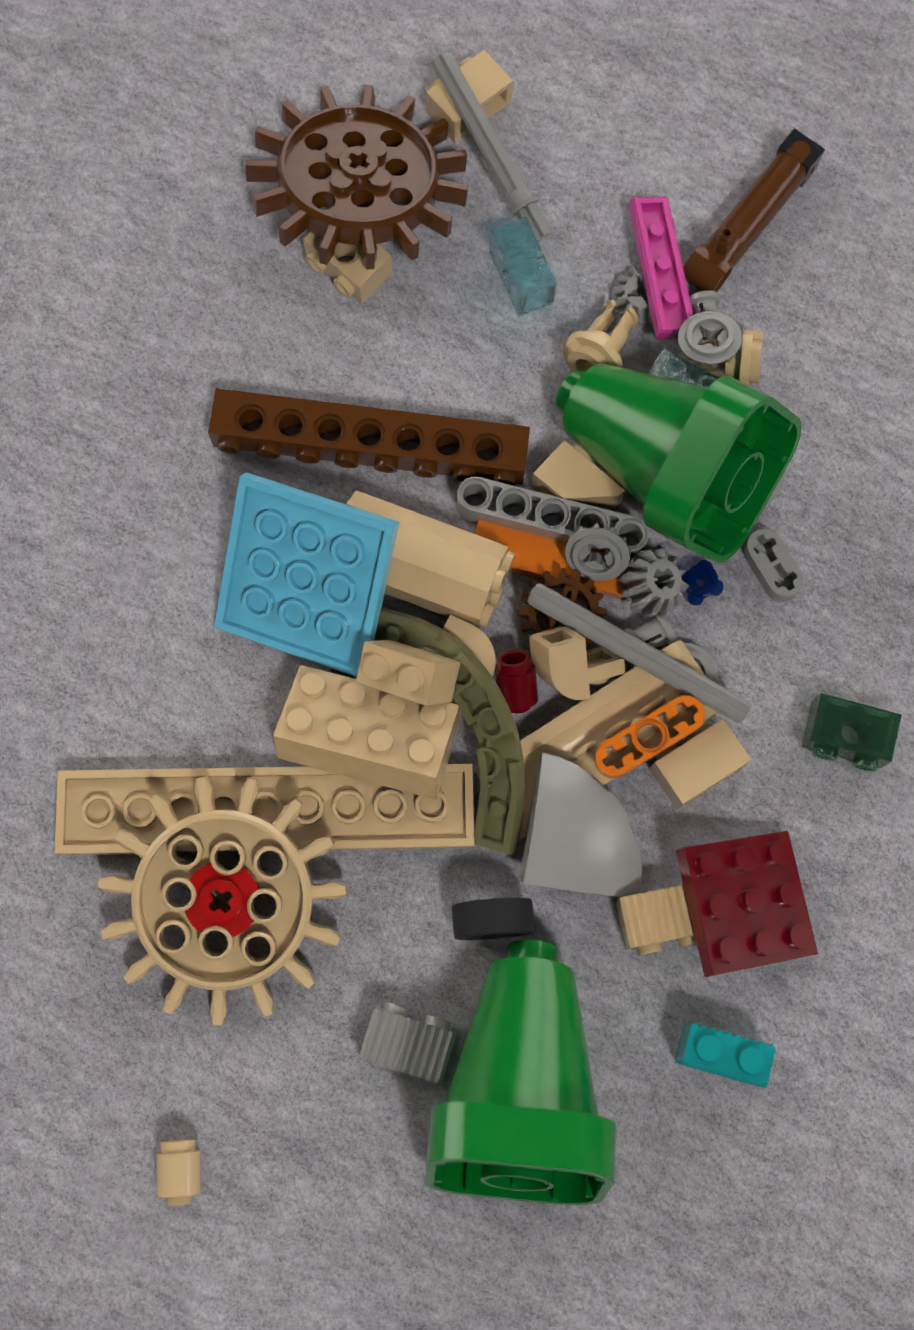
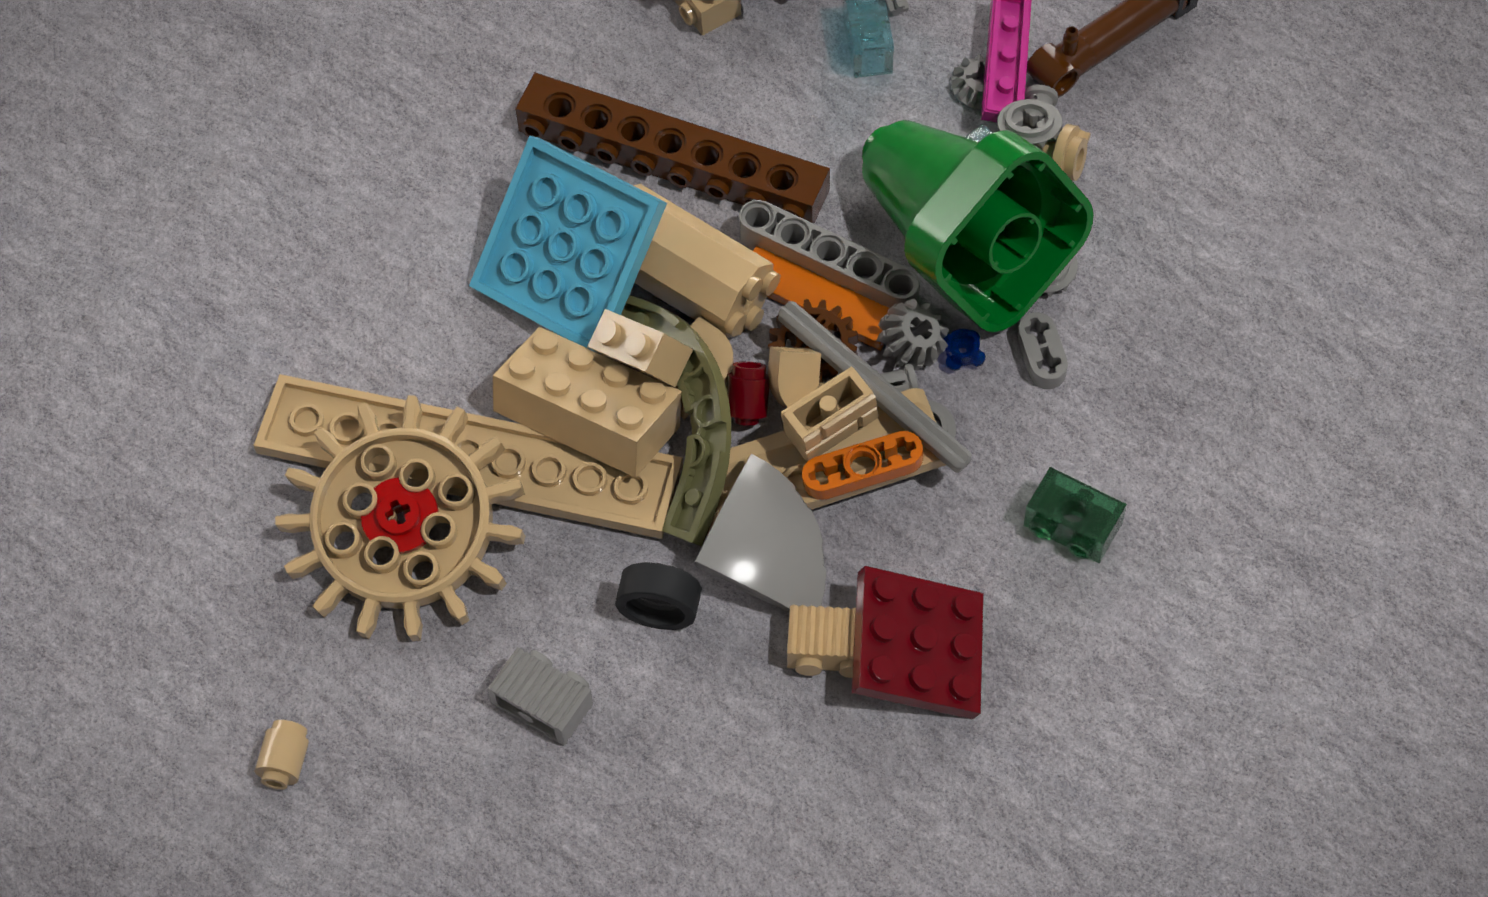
camera: 20 degrees right, 15 degrees down
(523, 1093) = (628, 761): green cone -> none
(574, 477) = (864, 223): tan slope -> none
(594, 565) = (860, 309): light grey gear -> none
(595, 346) = (929, 107): tan piece -> none
(609, 697) = (829, 414): none -> tan brick
(699, 763) = (910, 509): tan brick -> none
(725, 1054) = (854, 778): teal brick -> none

